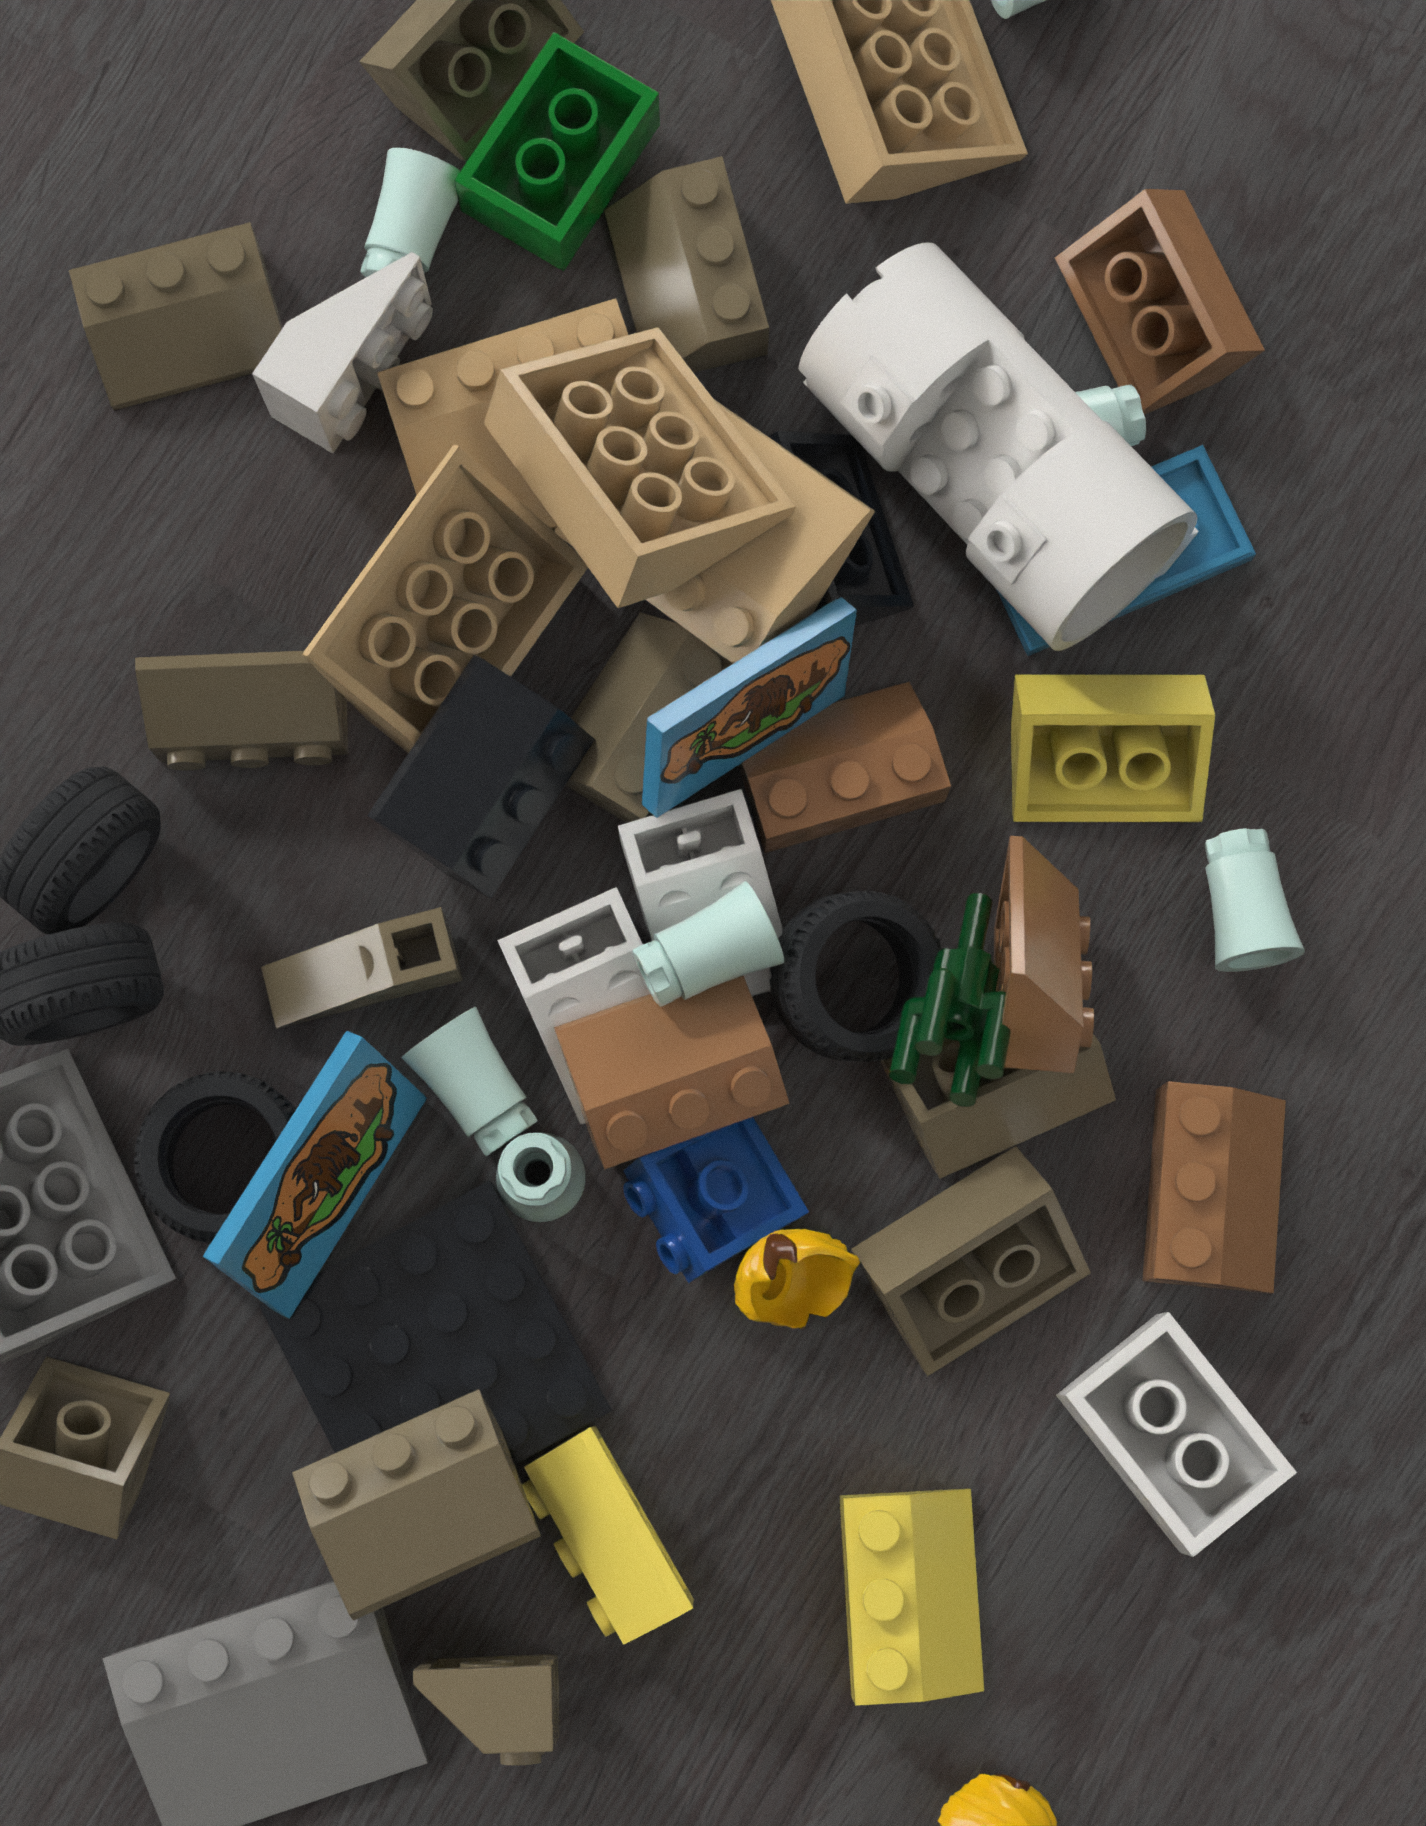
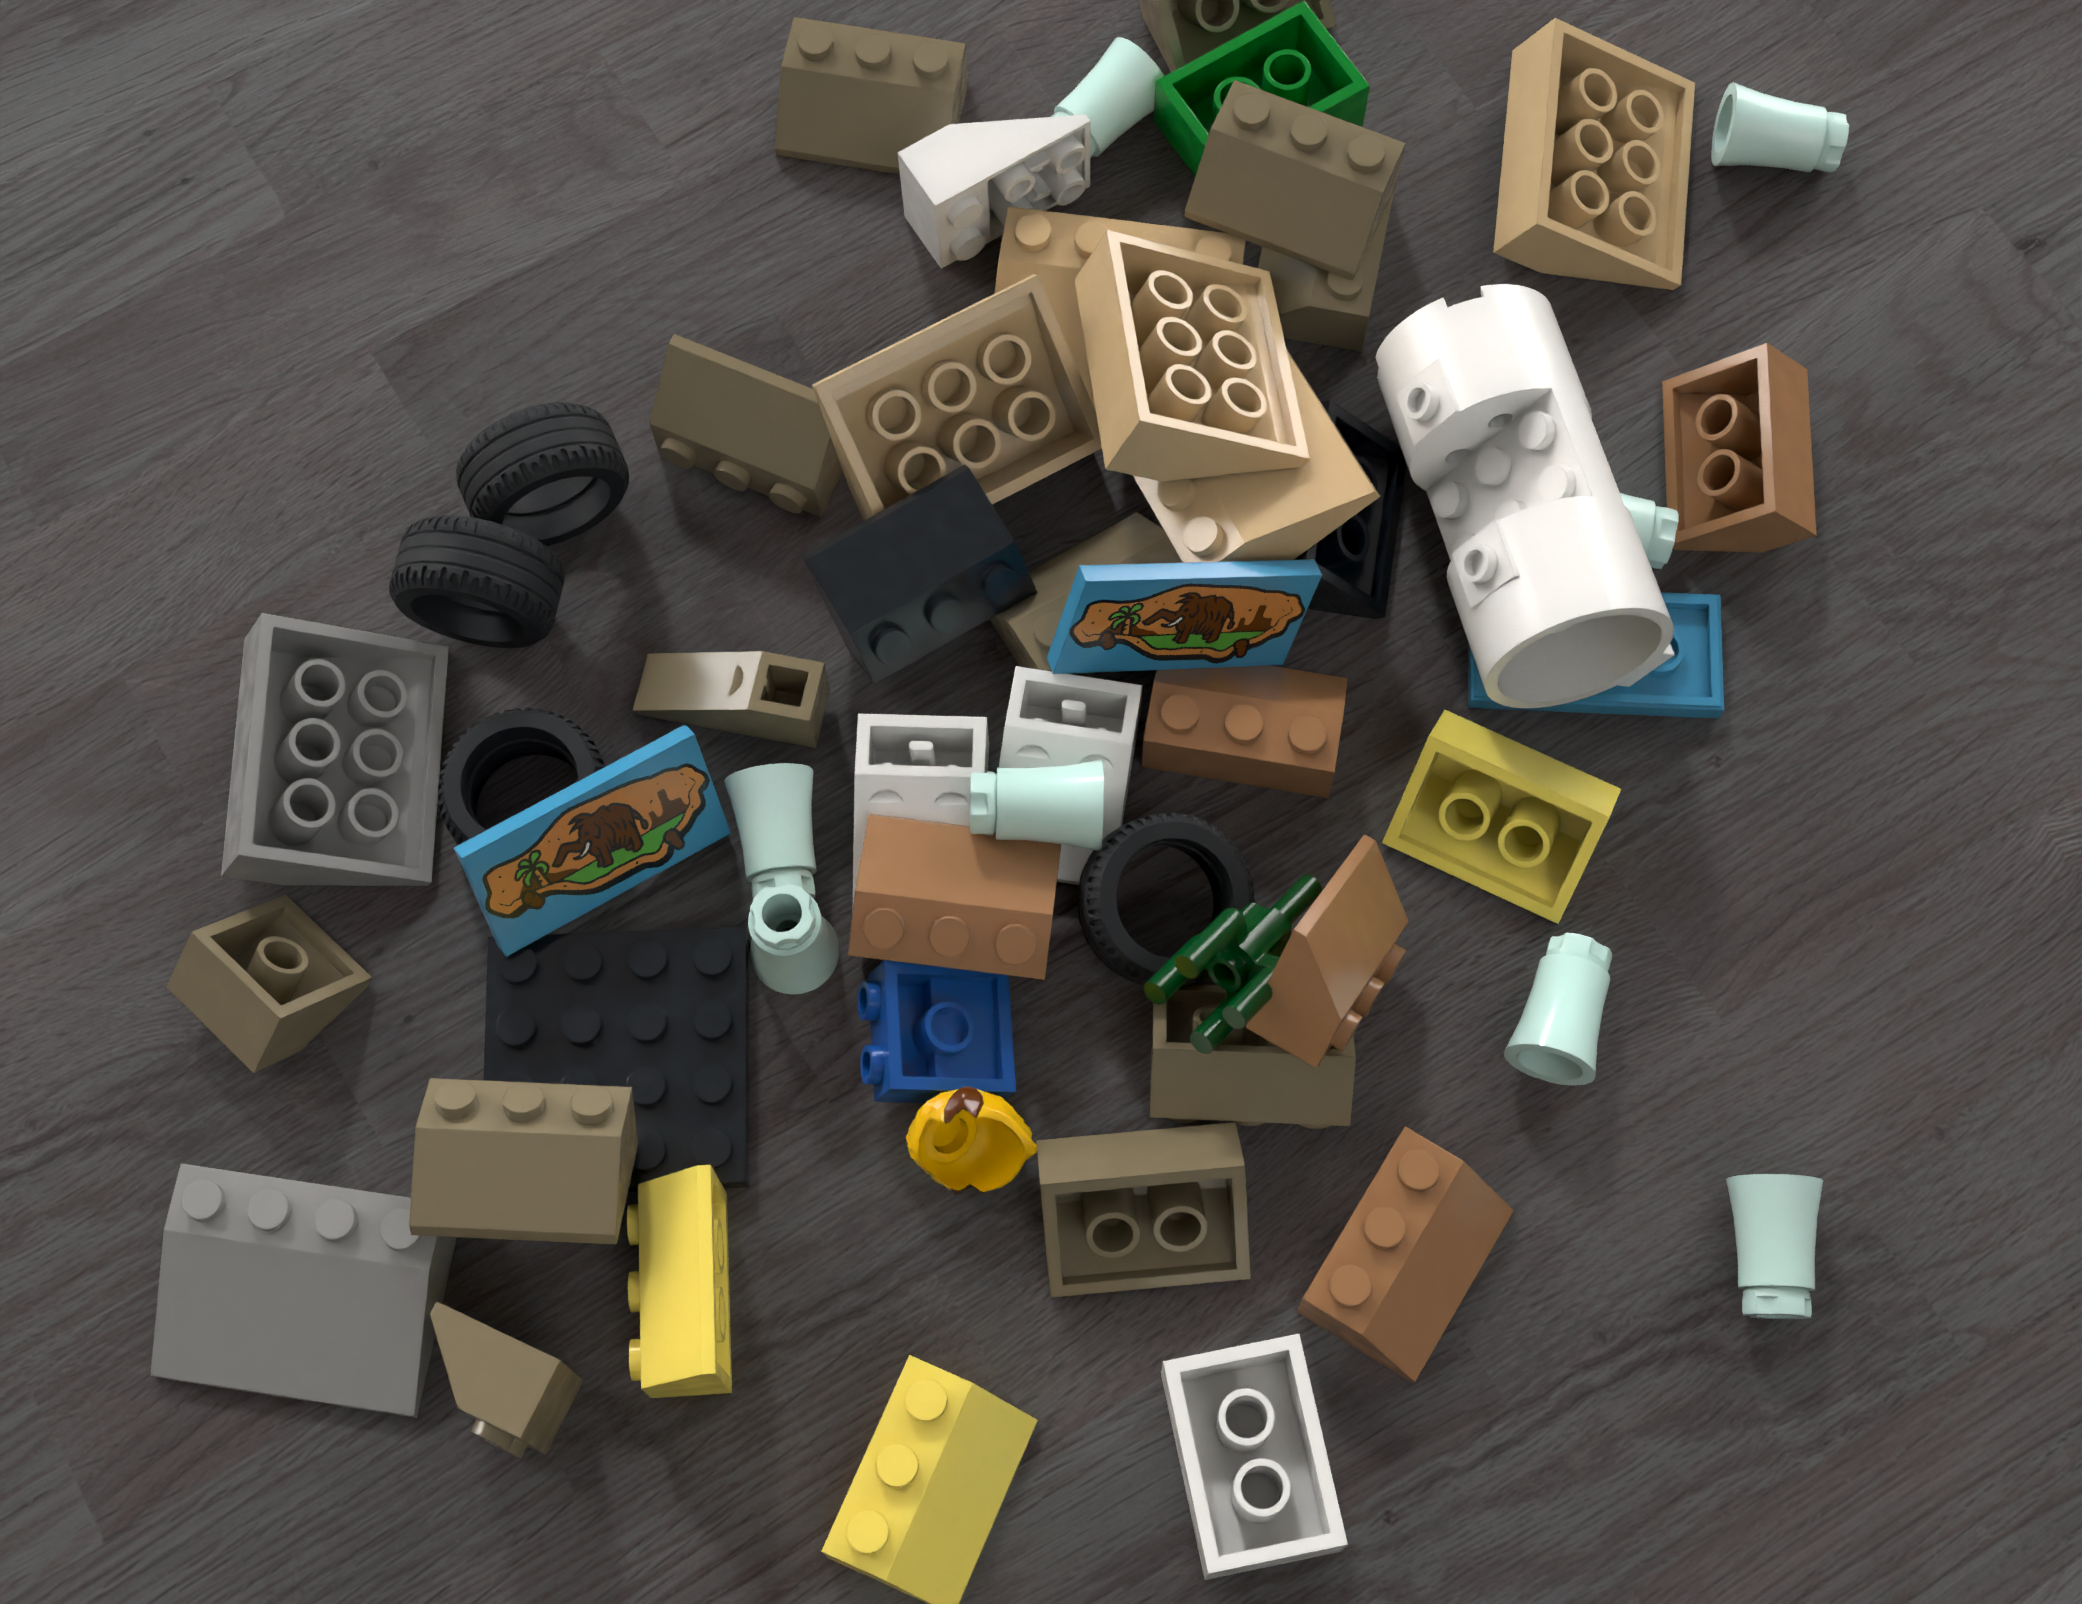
camera: 30 degrees right, 10 degrees down
(641, 228) = (1294, 179): none -> dark tan slope

